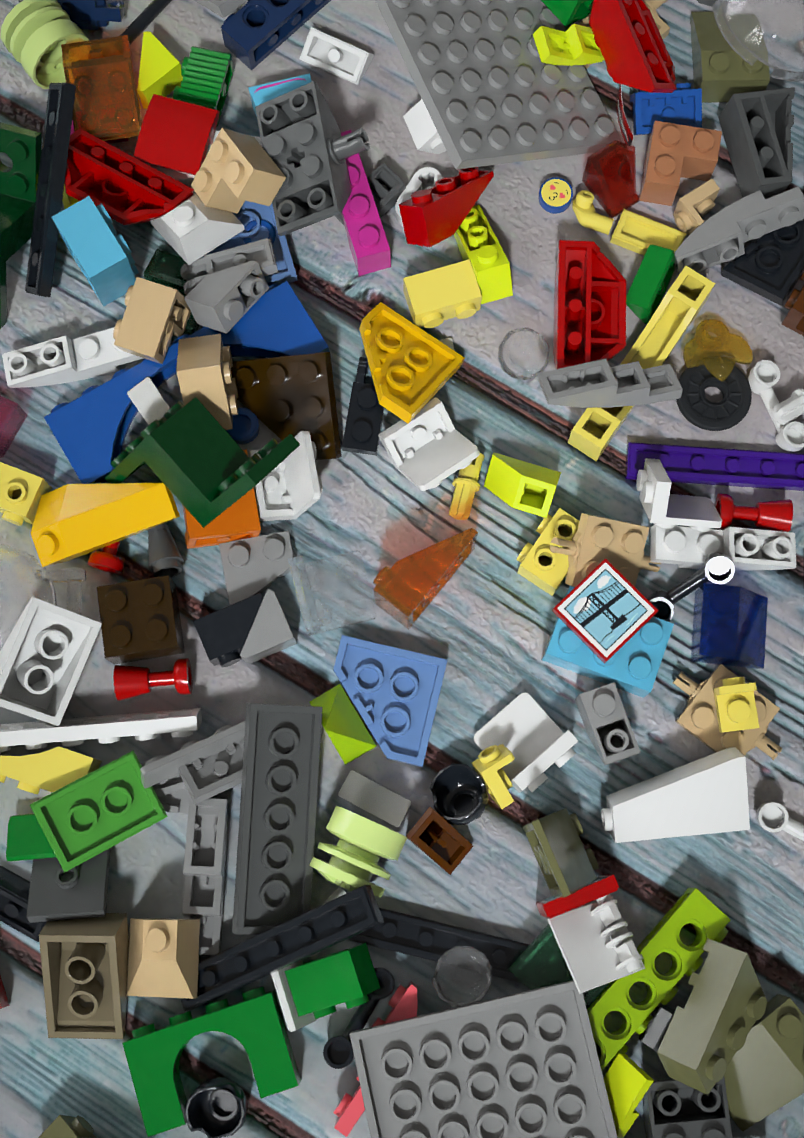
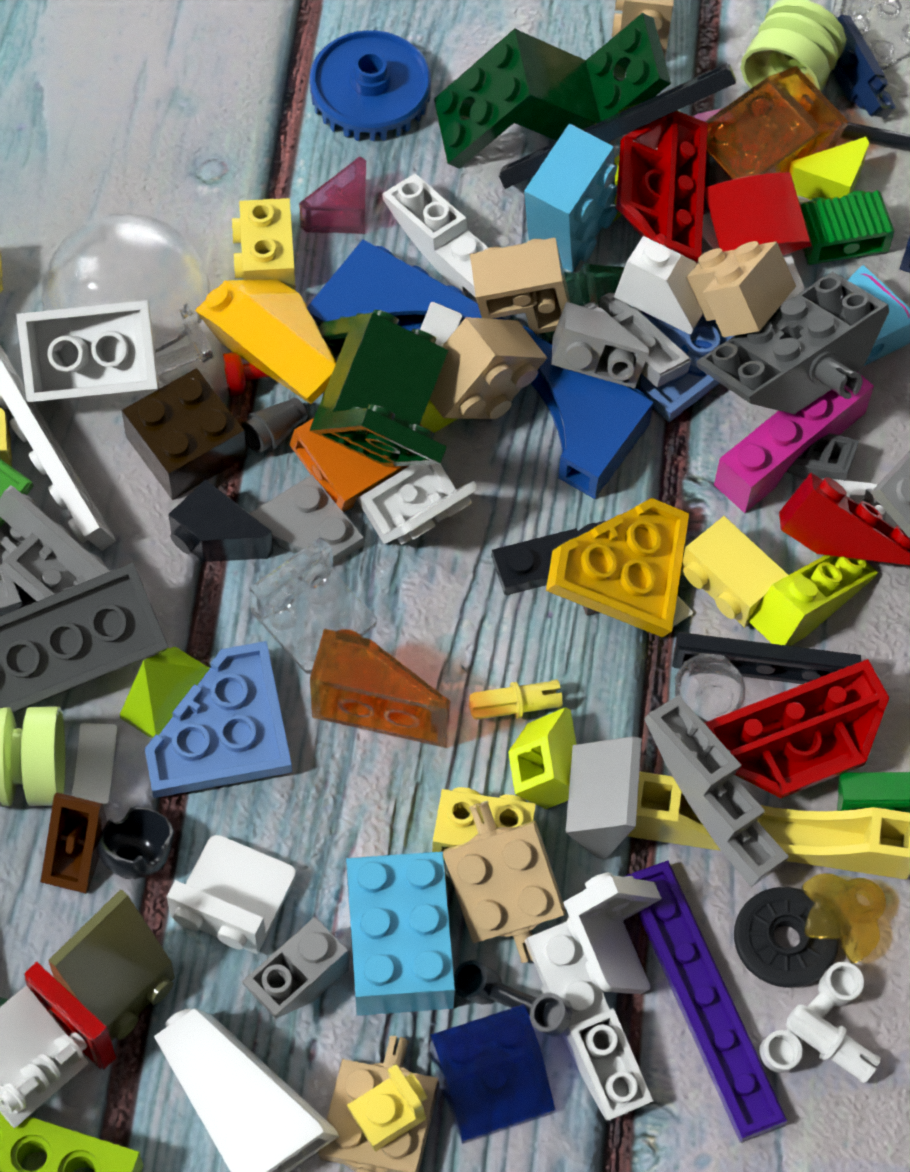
camera: 60 degrees right, 15 degrees down
(136, 681) = (113, 458): red piece -> none
(245, 426) = (464, 440): blue tile -> none
(269, 631) = (234, 564): light grey slope -> none
(293, 397) = (517, 473): dark brown plate -> none
(428, 447) = (539, 632): white bracket -> none
(489, 767) = (172, 866): light yellow bracket -> none
(516, 307) = (764, 659): none -> black tile
(576, 455) = (603, 793): none -> light grey slope
(605, 610) = (426, 895): tile -> none
(768, 514) = (660, 1061): red piece -> none

